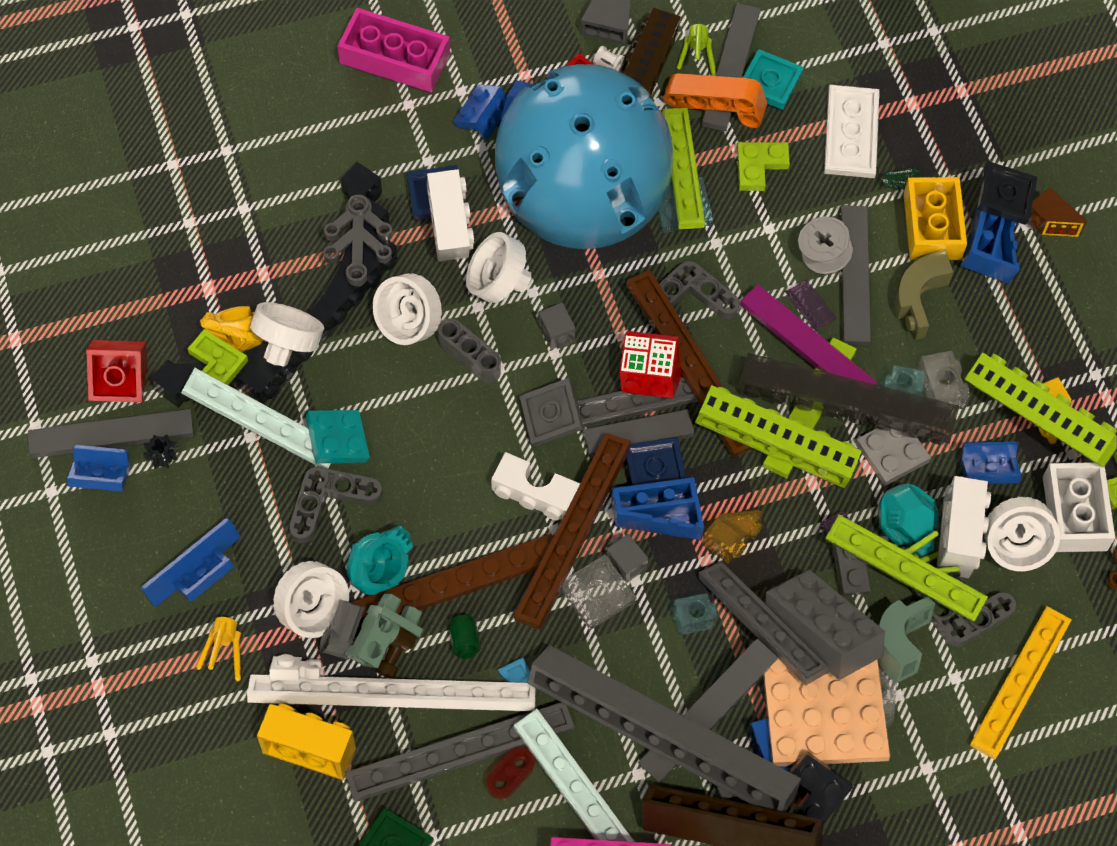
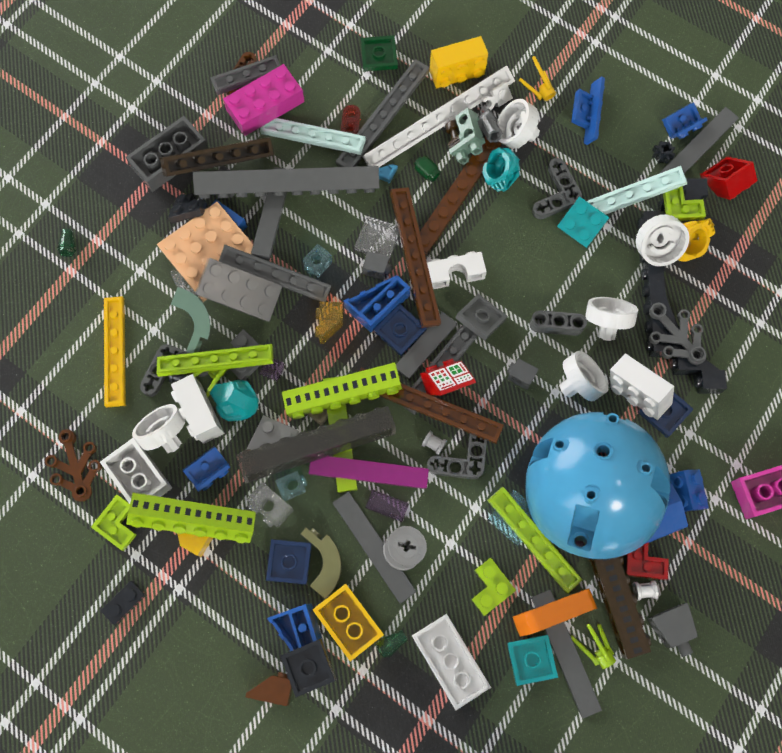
camera: 145 degrees right, 10 degrees up
(712, 324) = (434, 442): none -> light grey bush
(959, 317) = (289, 562): none -> dark blue plate

